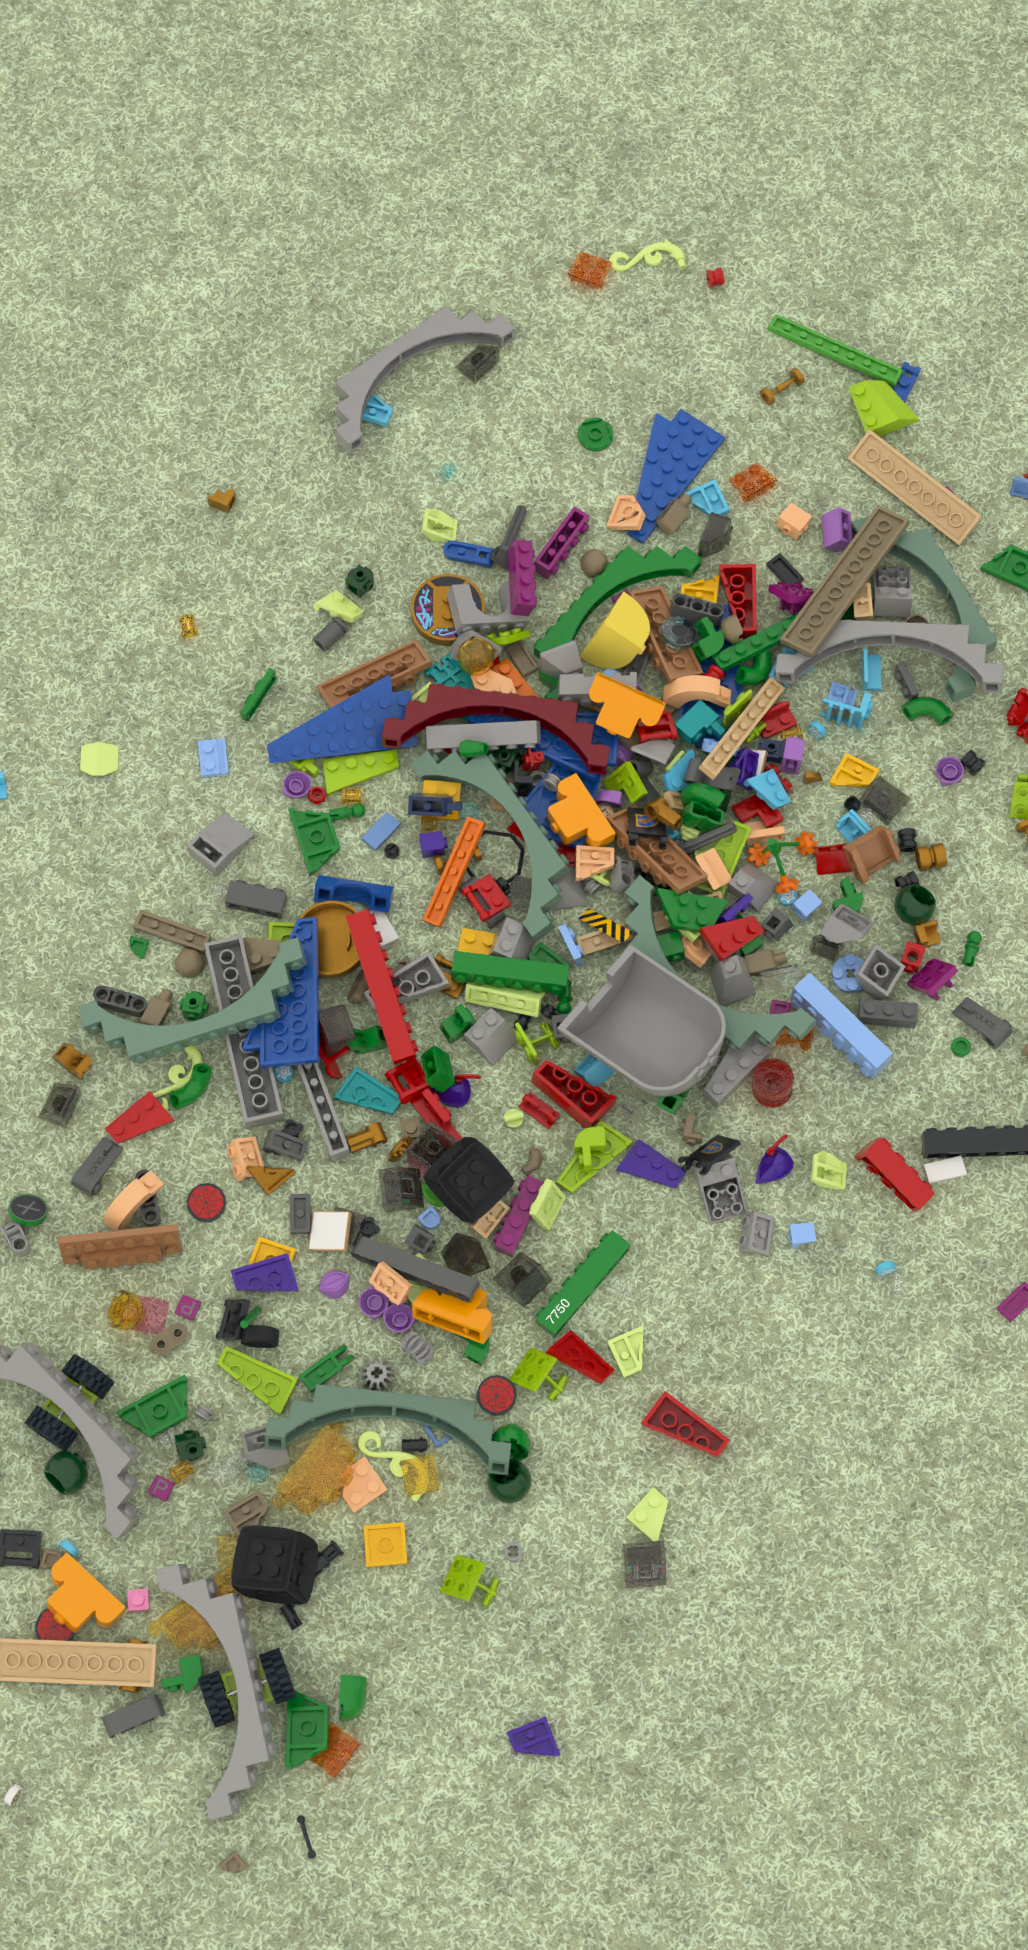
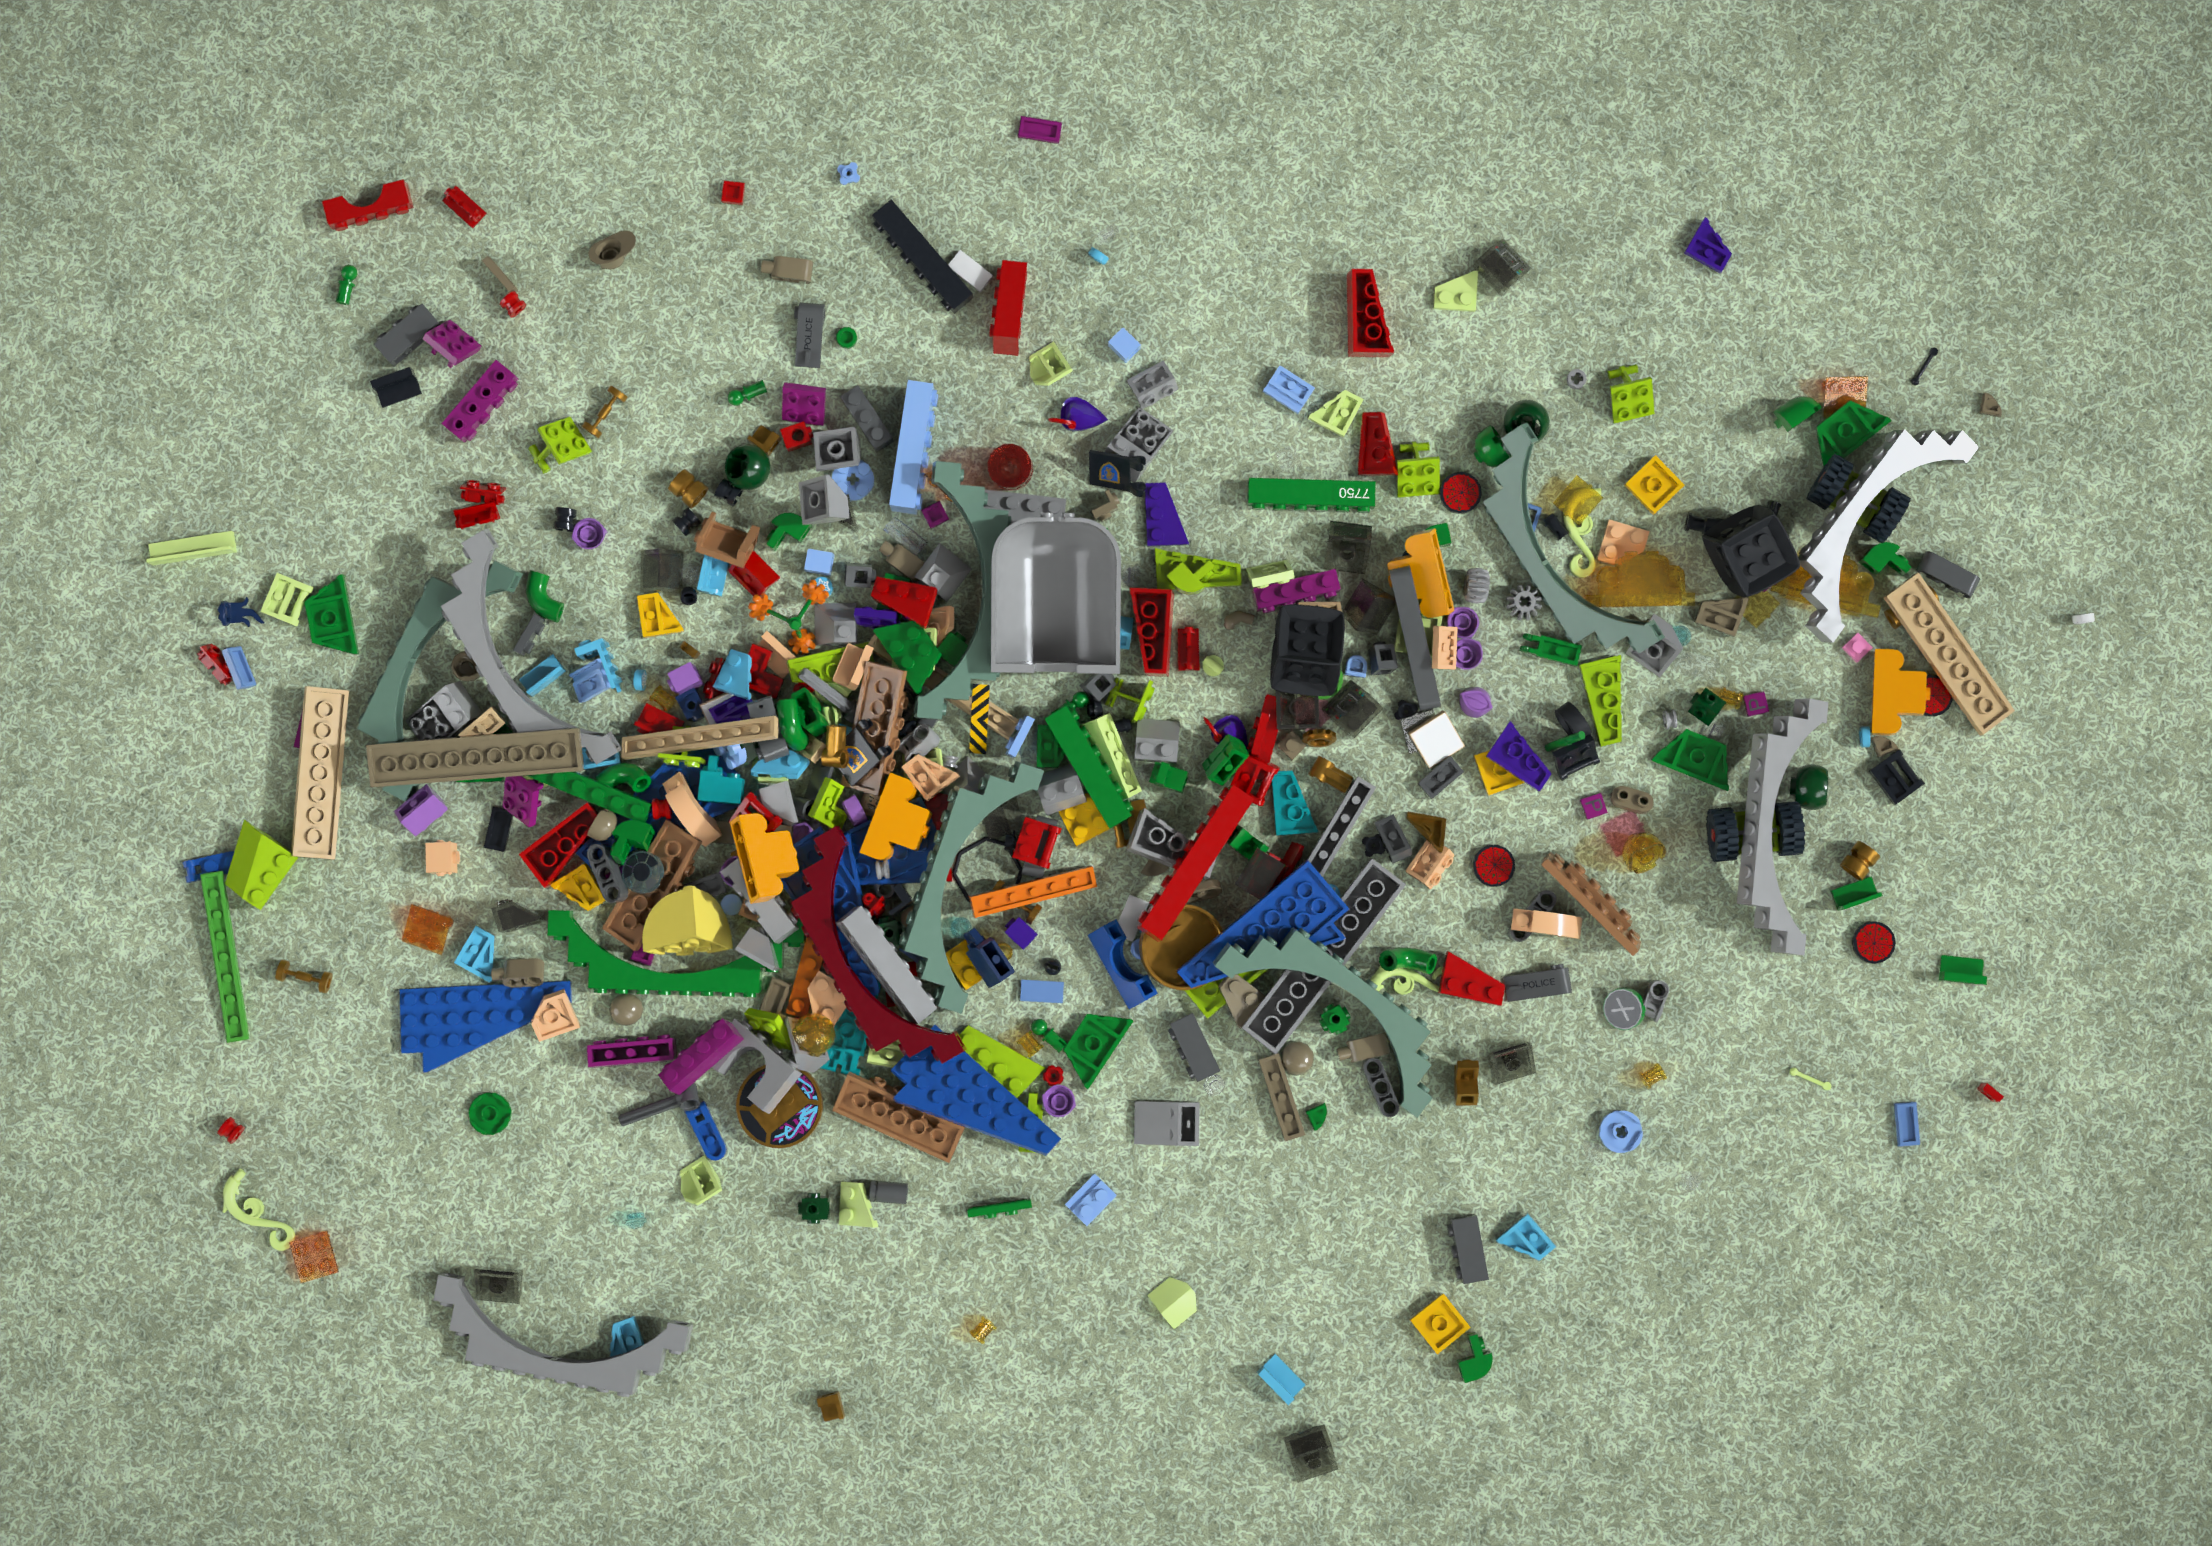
camera: 130 degrees left, 15 degrees up
(472, 748) = (910, 960): green cone -> none
(674, 1329) = (1288, 389): none -> light blue plate

